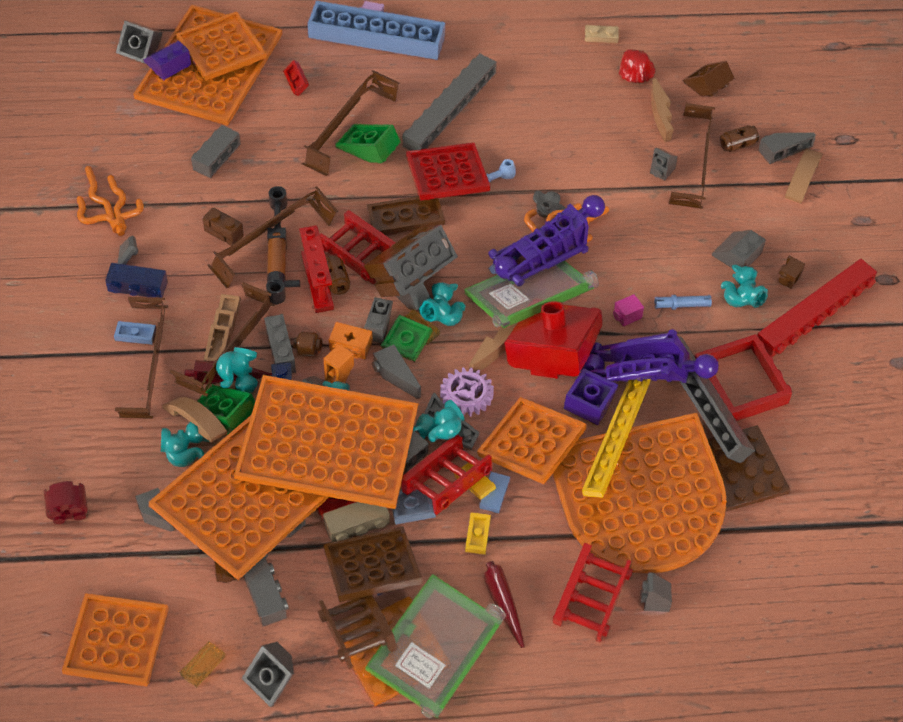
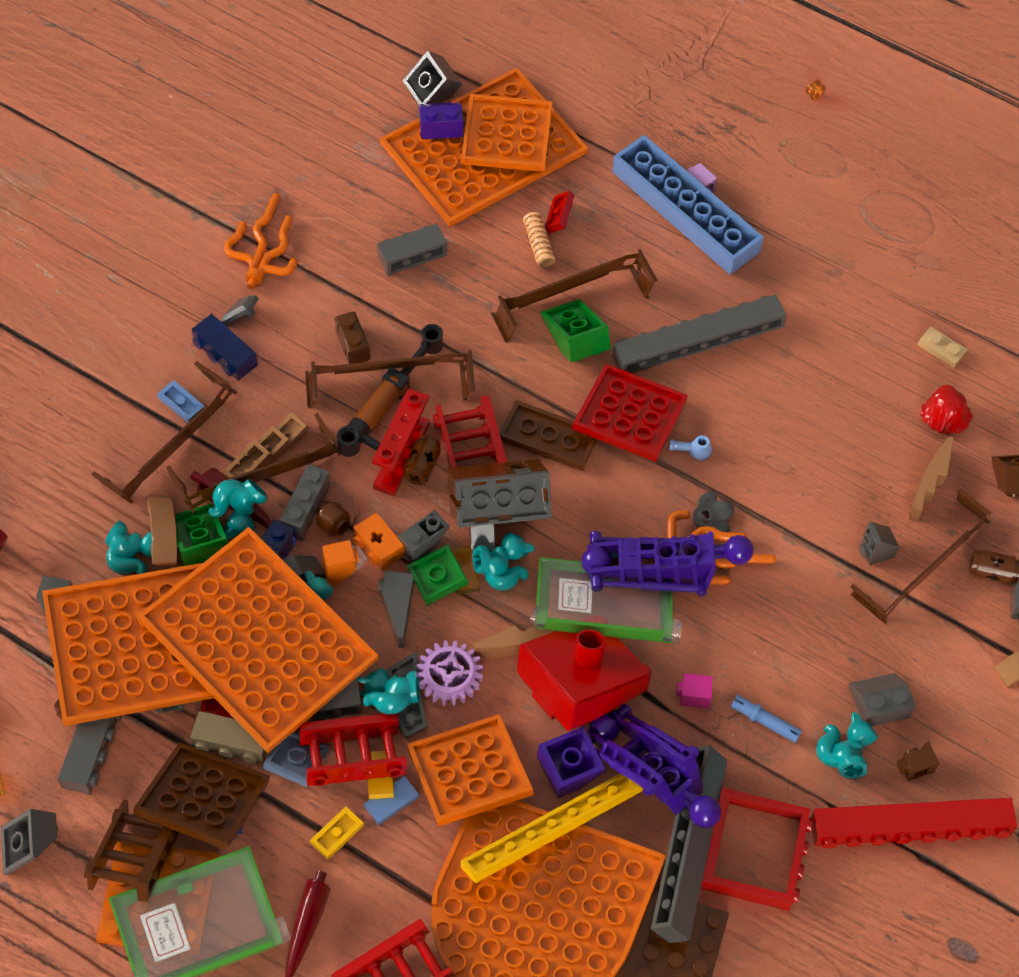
camera: 35 degrees right, 5 degrees up
(297, 101) = (539, 240): none -> light nougat piece

